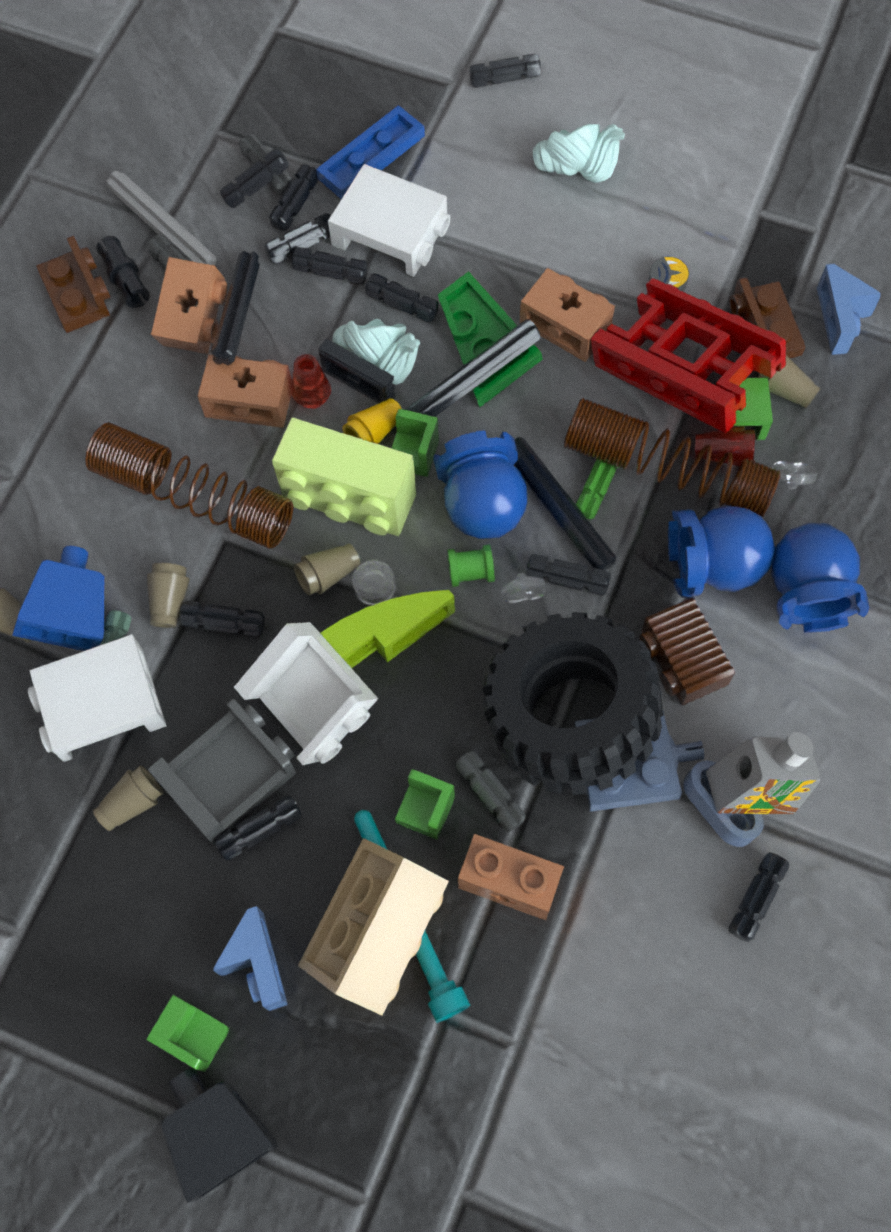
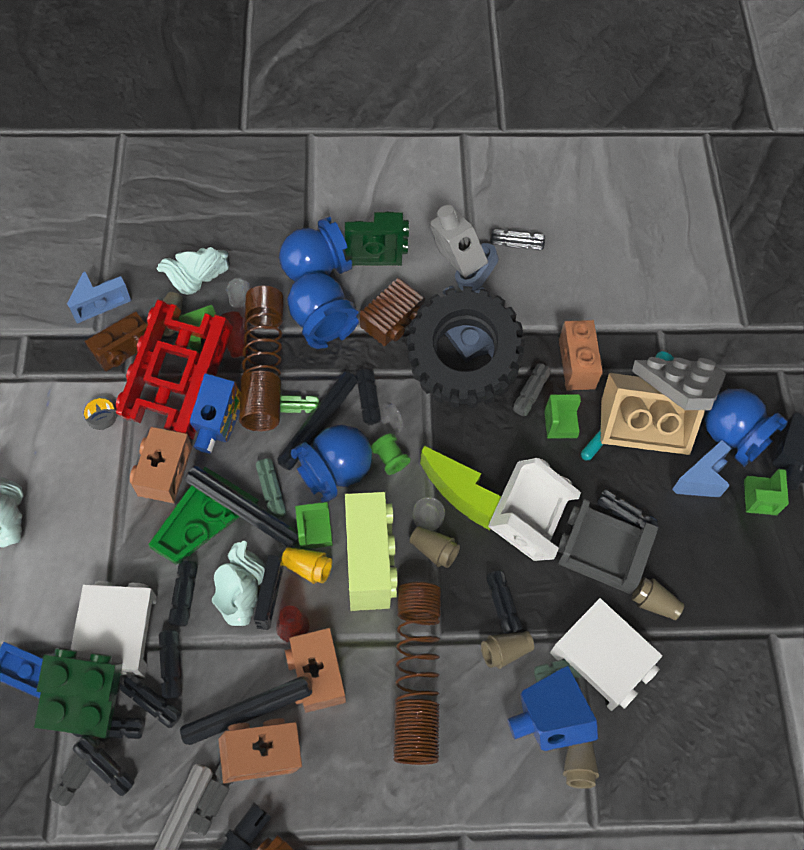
camera: 120 degrees left, 5 degrees down
(295, 1050) = (742, 423): none -> blue tile
(331, 164) = (77, 693): none -> dark green plate
(383, 987) = (685, 382): none -> light grey plate
(490, 420) = (270, 487): none -> sand green axle
(611, 377) = (215, 412): none -> blue torso
(813, 669) = (377, 241): none -> dark green plate
(852, 429) = (194, 268): none -> light aqua hair

